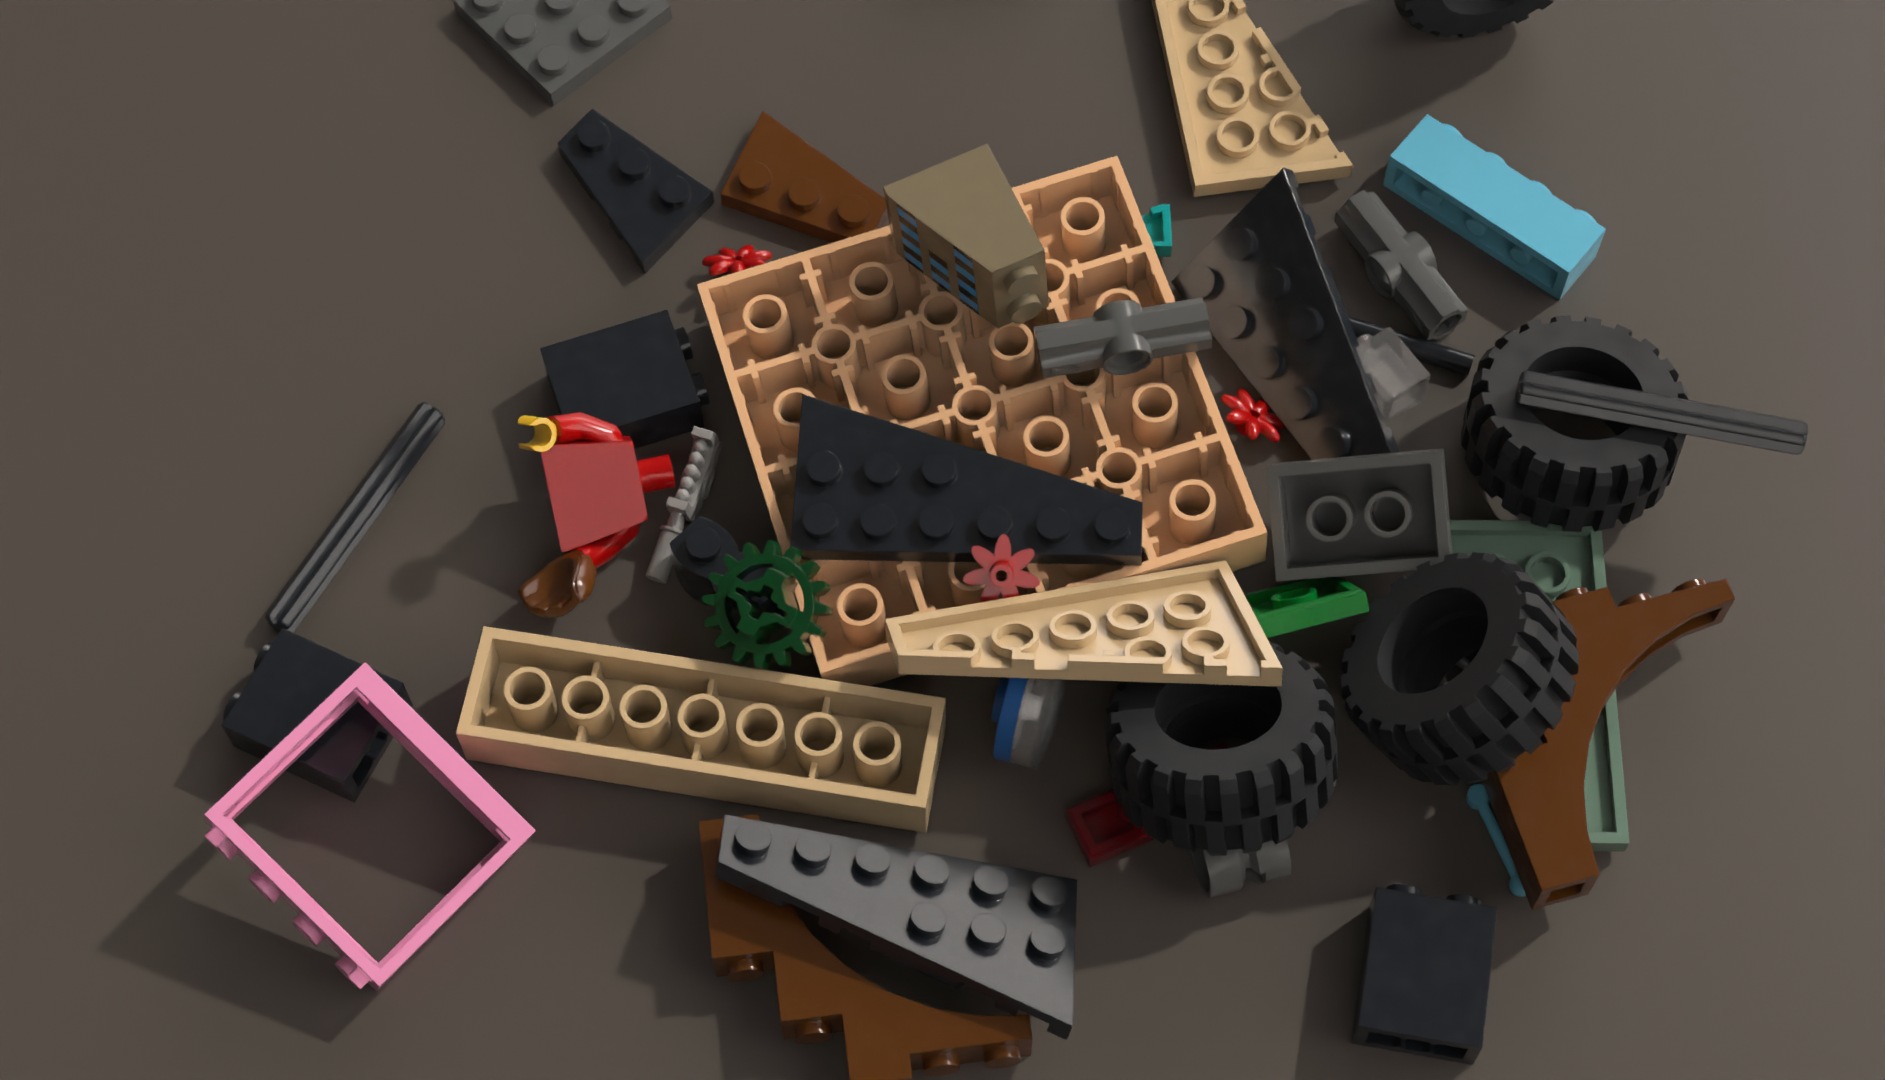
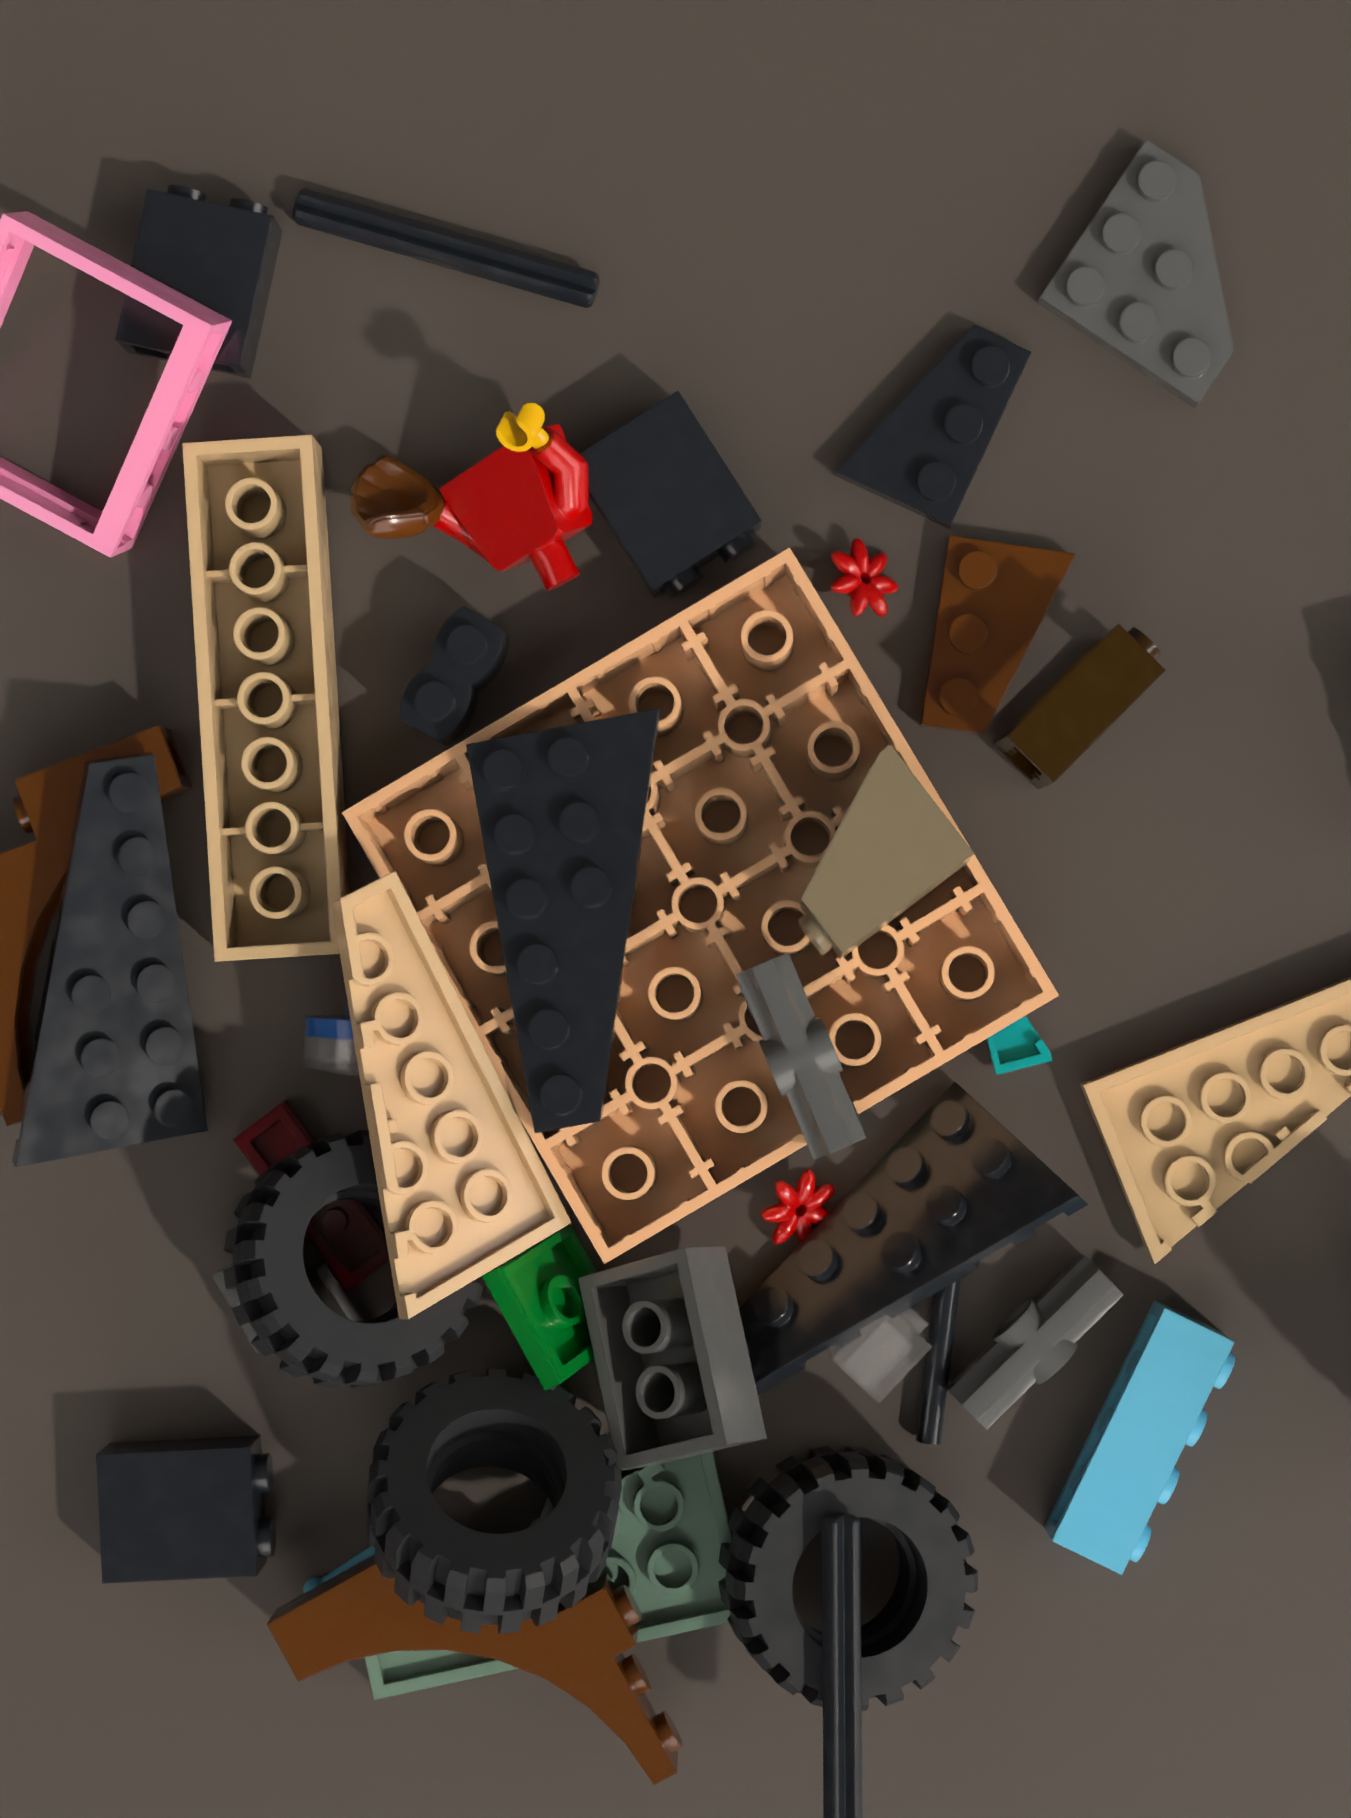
camera: 75 degrees right, 25 degrees up
(688, 500) = (565, 607): light grey piece -> none
(756, 624) = (362, 732): dark green gear -> none
(884, 111) = (1081, 705): none -> dark brown window
(1001, 561) = (485, 984): red plant -> none

